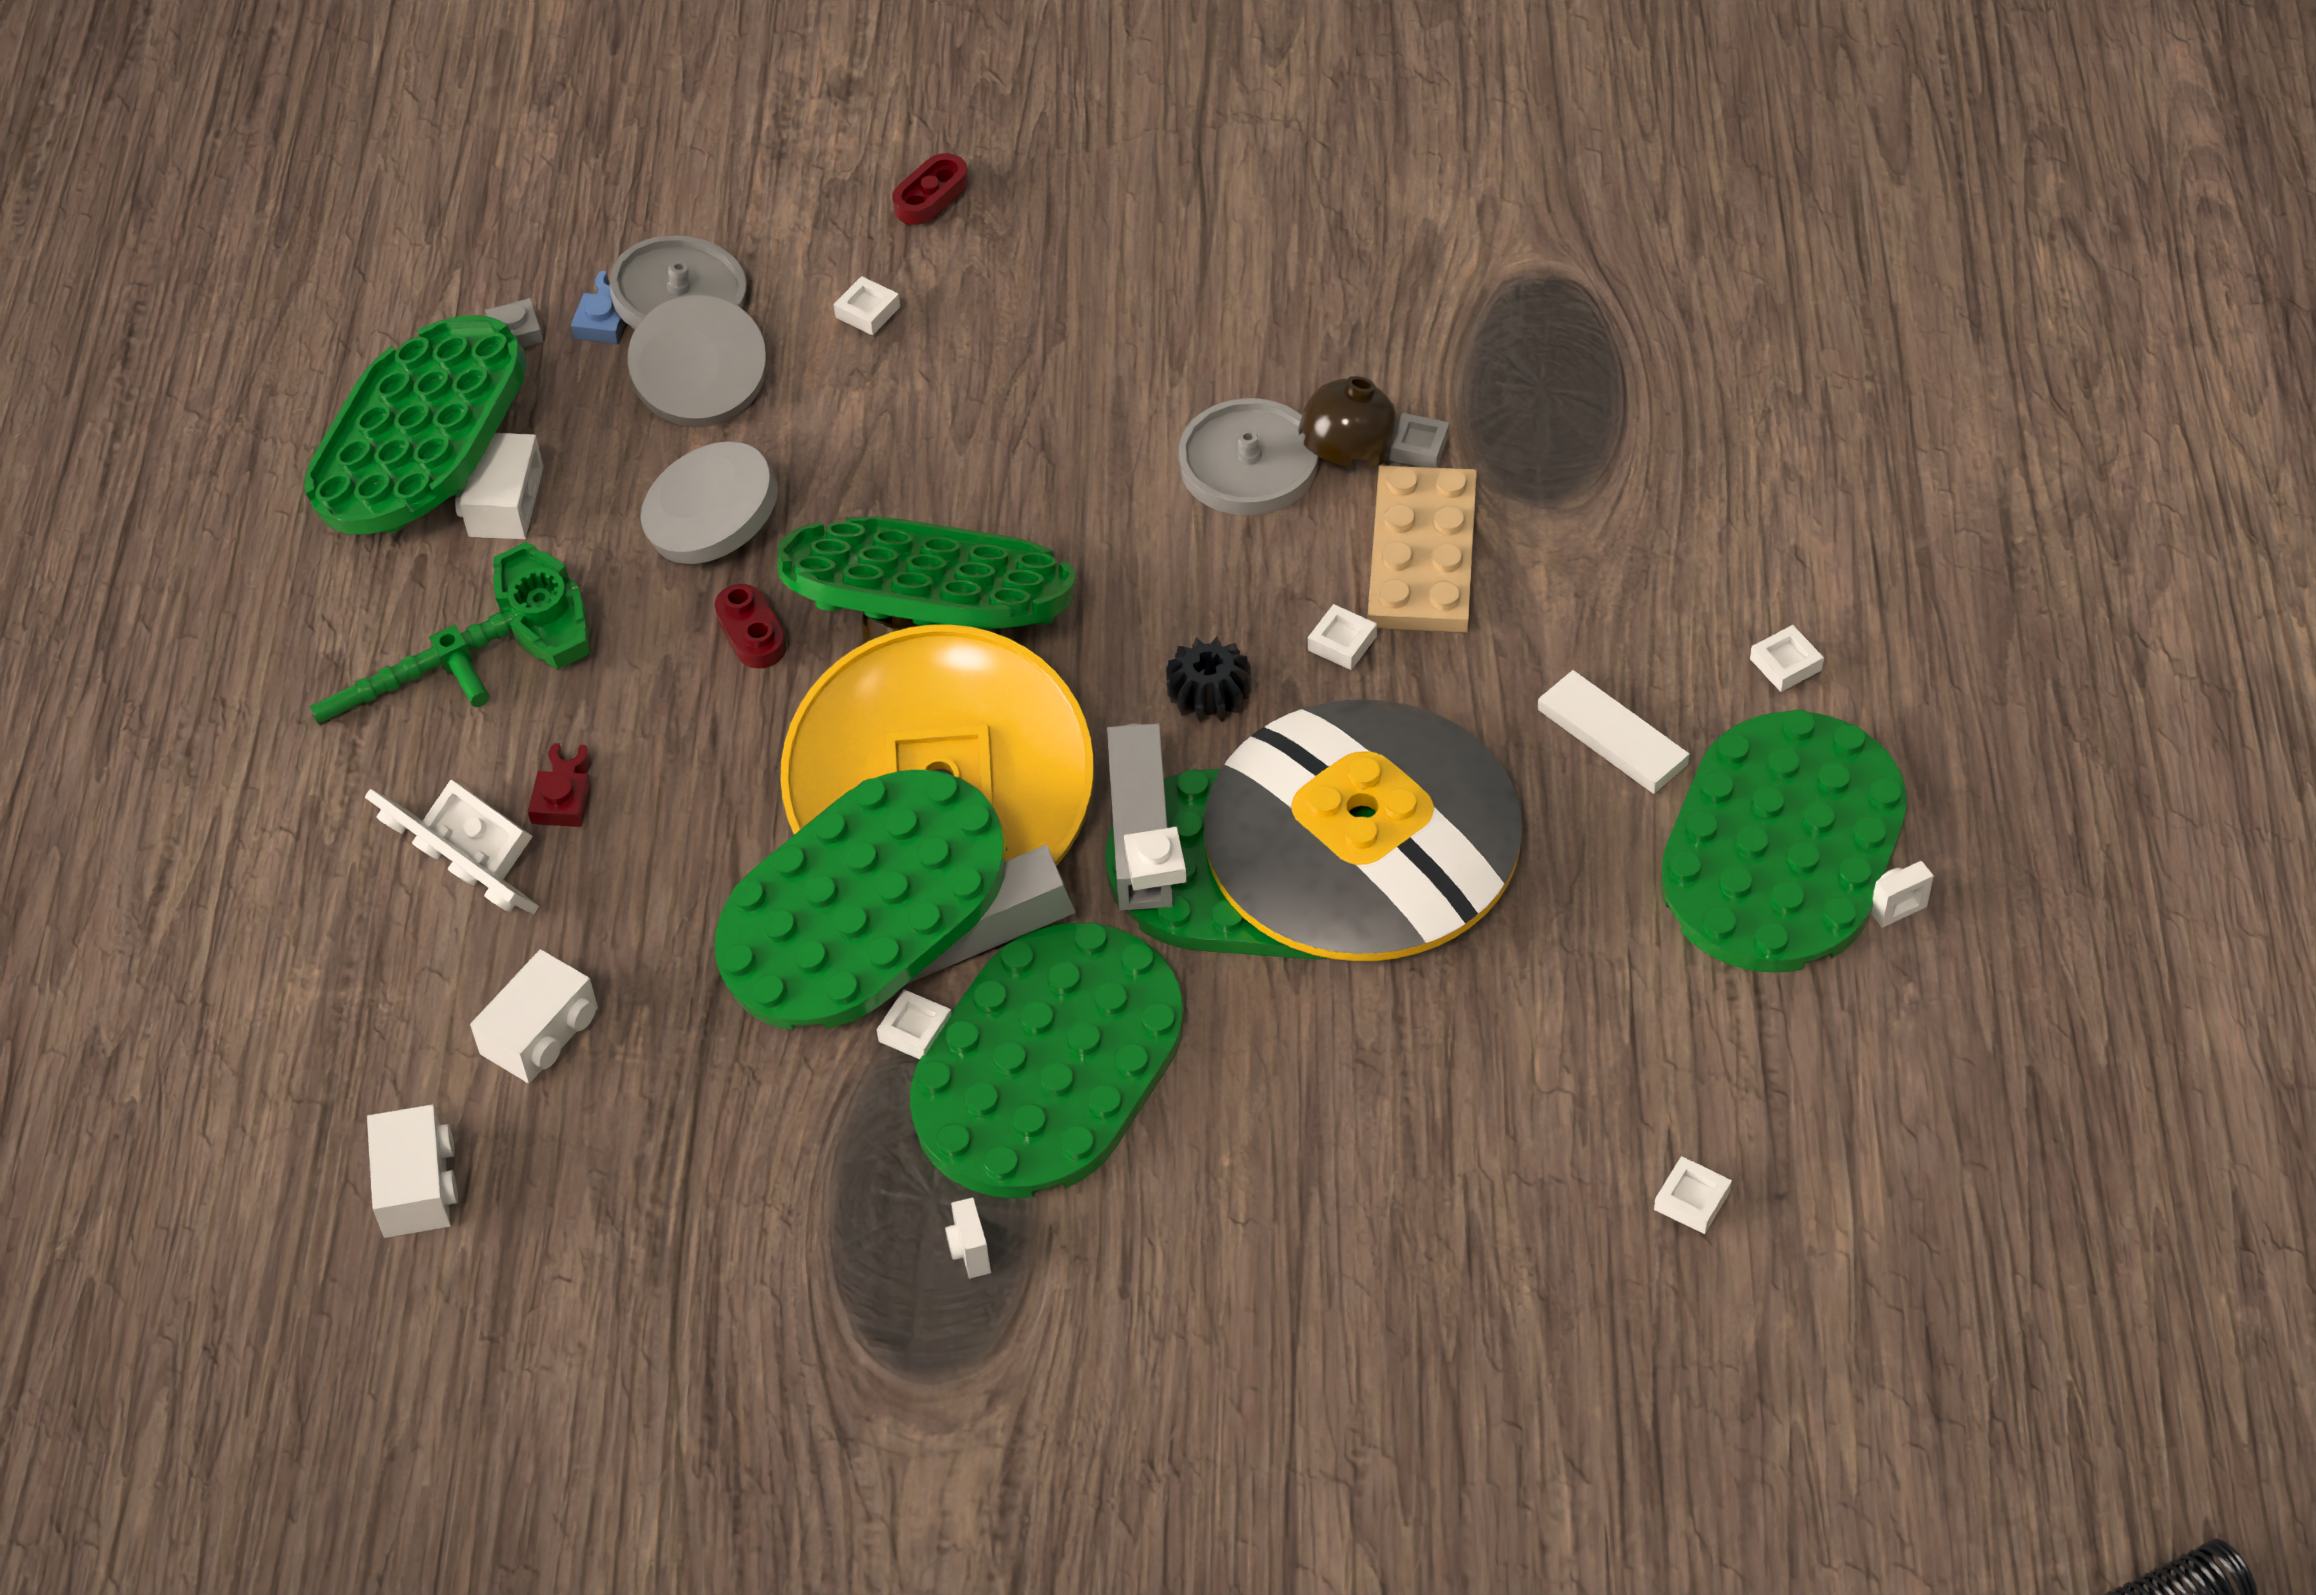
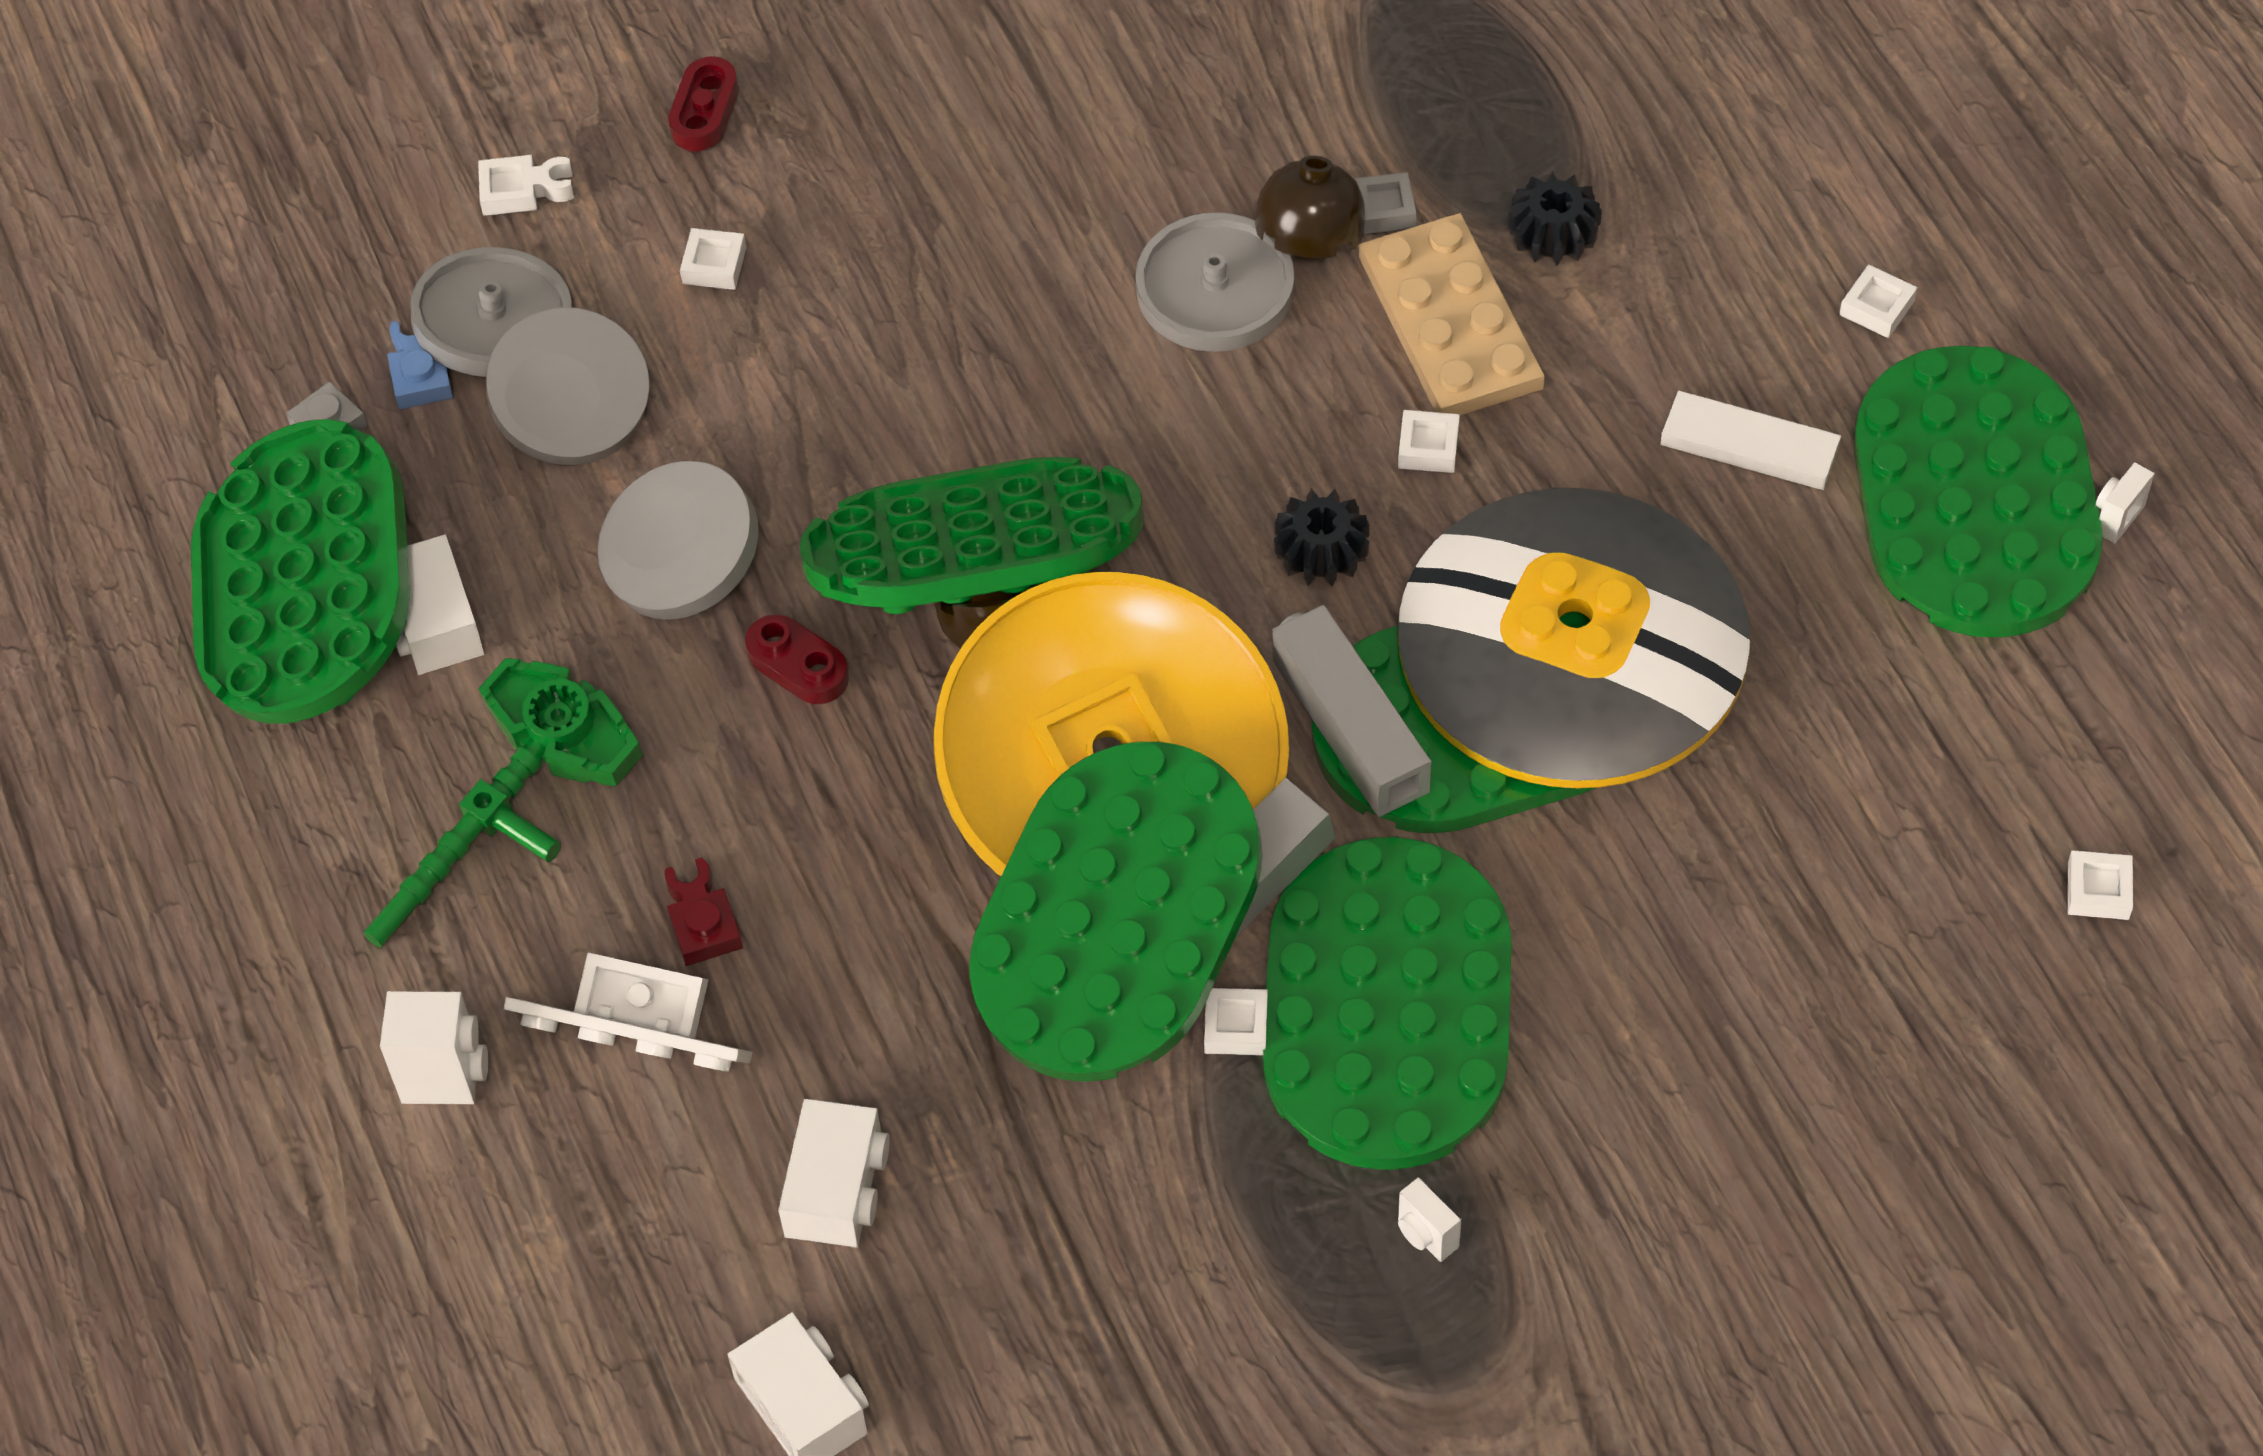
camera: 25 degrees left, 5 degrees up
(293, 804) = (432, 1047): none -> white brick
(754, 199) = (515, 183): none -> white plate
(1155, 858) = (1409, 749): white plate -> none
(1550, 499) = (1554, 218): none -> black gear

